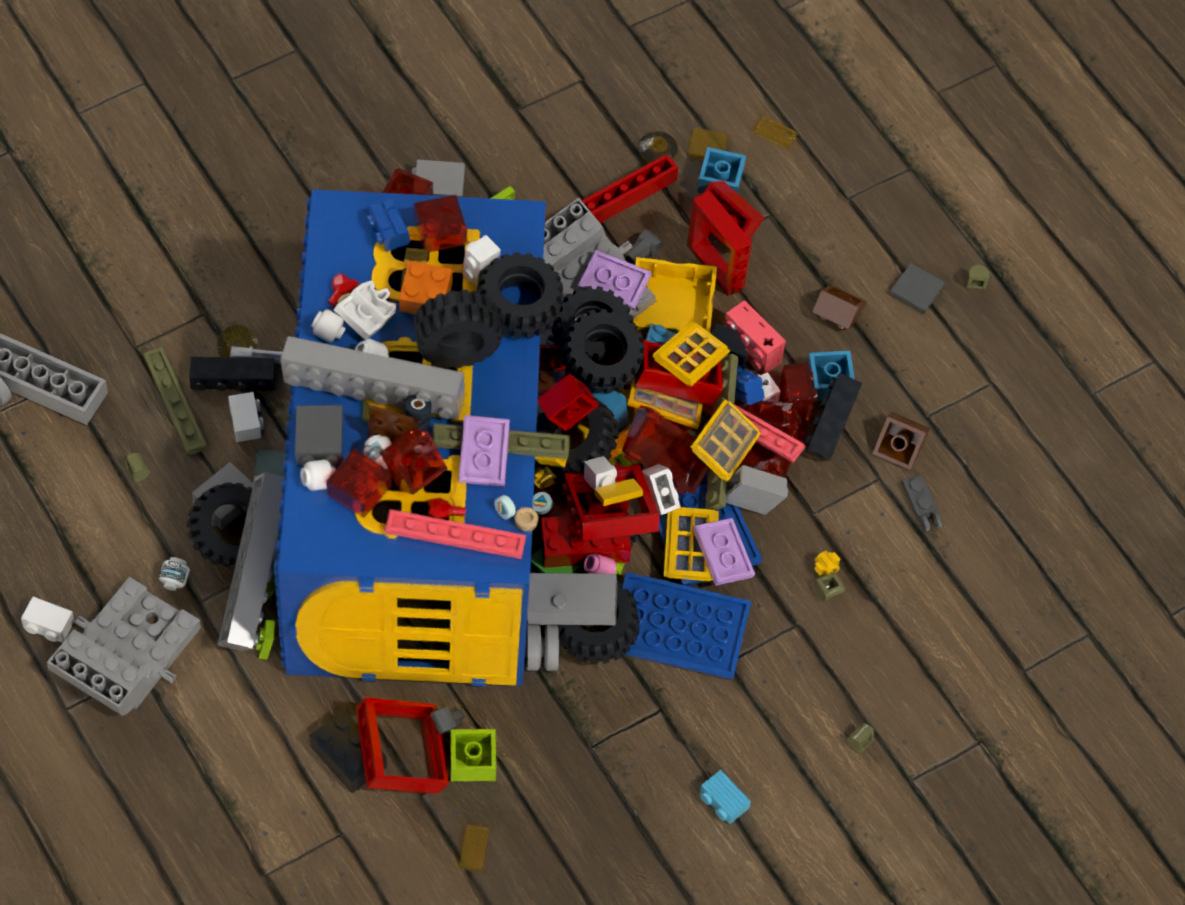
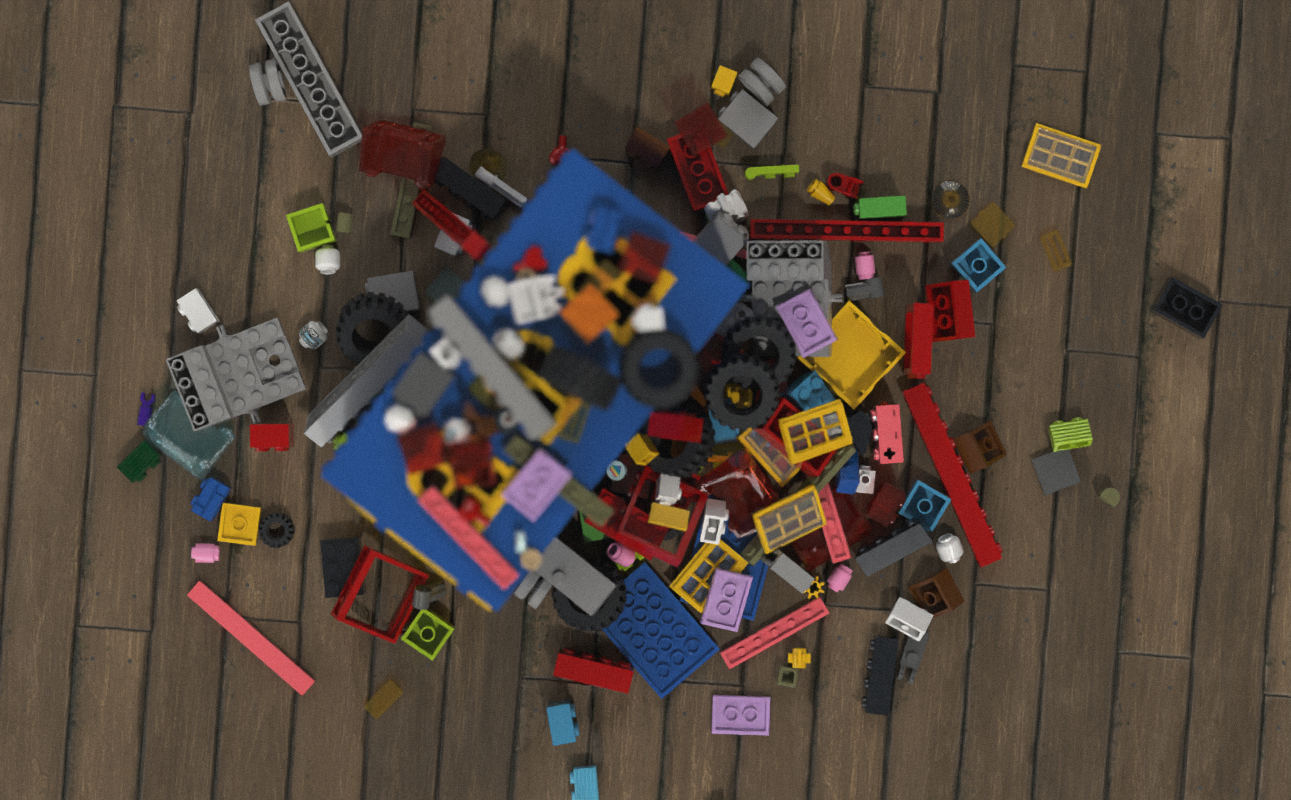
camera: 40 degrees right, 30 degrees up
(55, 738) = (145, 410): none -> dark purple bar
(80, 783) = (140, 461): none -> dark green brick
(106, 487) = (311, 228): none -> lime piece
(110, 738) = (174, 436): none -> clear light blue windscreen
(143, 504) = (327, 259): none -> white head
(151, 375) = (401, 152): none -> clear red windscreen
(175, 773) = (210, 499): none -> blue brick
(196, 676) = (271, 436): none -> red brick
(204, 825) = (205, 553): none -> bright pink brick
(219, 779) = (239, 524): none -> yellow plate
(243, 363) = (452, 225): none -> red brick
(259, 750) = (265, 527): none -> black tyre
(293, 300) = (558, 152): none -> red rock
(303, 875) = (251, 637): none -> coral tile
(321, 395) = (446, 354): none -> white brick
(394, 160) = (723, 81): none -> yellow brick
(429, 141) = (761, 81): none -> light grey wheel
(474, 401) = (582, 423): none -> clear yellow tile
(552, 201) = (819, 191): none -> yellow cone
(562, 184) = (846, 185): none -> red piece
(605, 172) = (880, 208): none -> bright green brick
(627, 230) = (865, 265): none -> bright pink brick
(652, 687) = (594, 671): none -> red brick
(658, 749) = (561, 722): none -> dark azure brick
(721, 65) = (1061, 155): none -> clear piece
(788, 562) = (774, 632): none -> coral tile
(792, 501) = (815, 592): none -> yellow gear
(808, 478) = (839, 577): none -> bright pink brick
(815, 648) = (741, 715): none -> lavender tile
(829, 337) = (952, 475): none -> red brick
(881, 397) = (949, 548): none -> white head
(895, 470) = (909, 619): none -> white brick
(905, 250) = (1070, 434): none -> lime brick
(909, 533) = (881, 675): none -> black brick
(915, 105) = (1185, 307): none -> black brick

